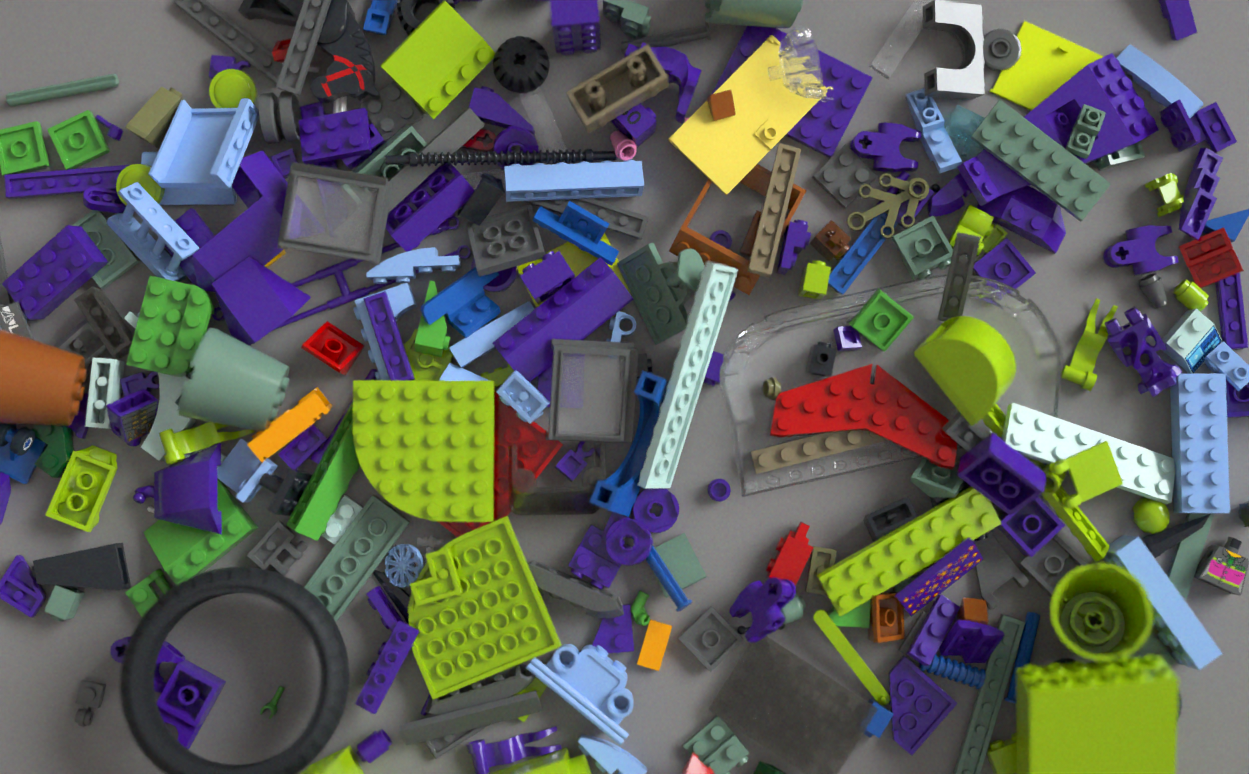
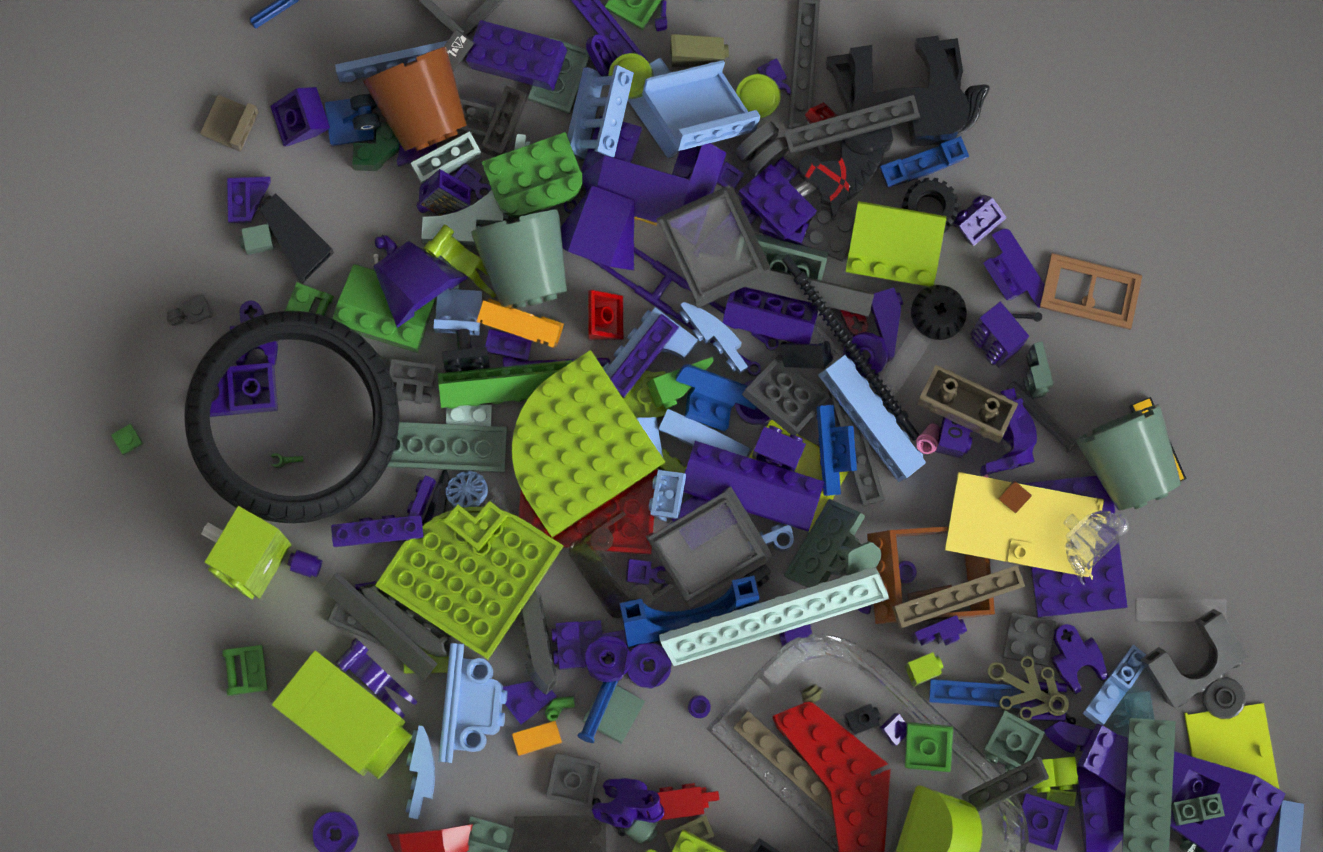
camera: 50 degrees right, 5 degrees down
(83, 488) = (359, 193): lime slope -> none
(831, 242) = (965, 662): reddish brown hinge -> none

